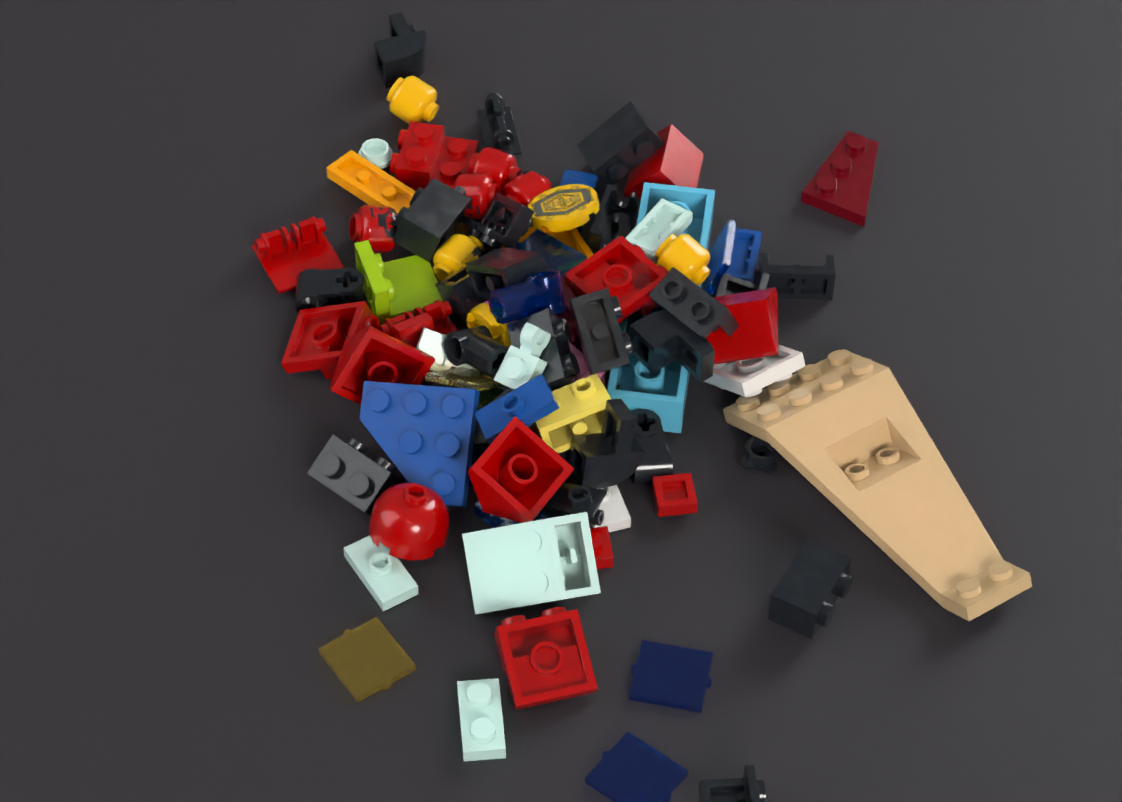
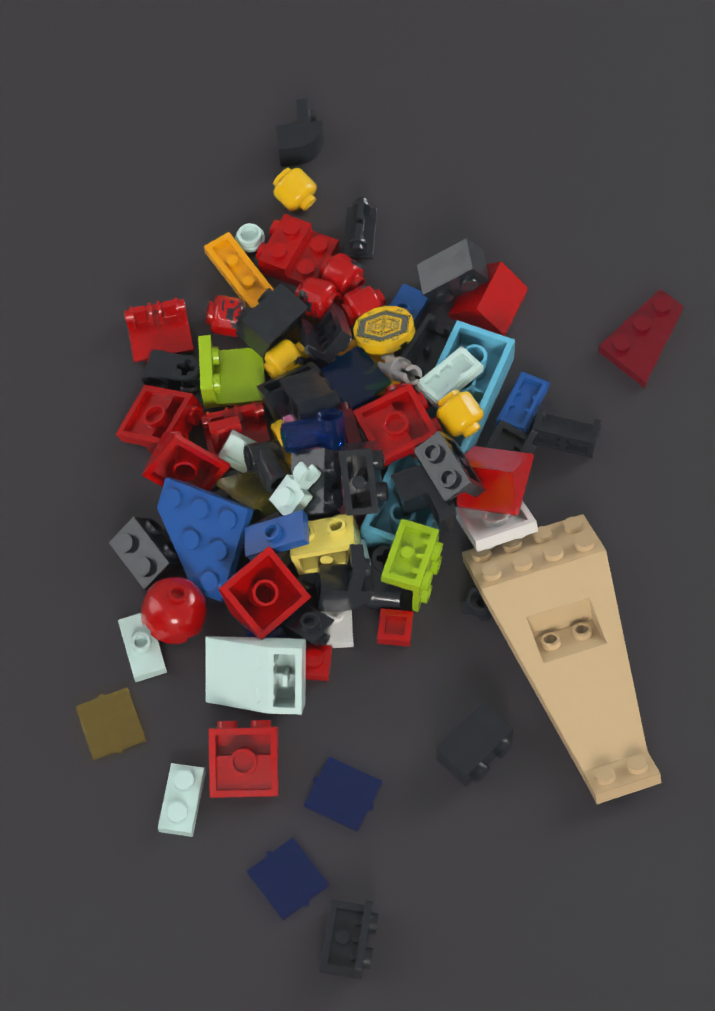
camera: 20 degrees right, 15 degrees up
(597, 234) = (400, 369): none -> light grey pin
(677, 411) = (414, 560): none -> lime bracket
(720, 257) = (500, 406): clear blue piece -> none

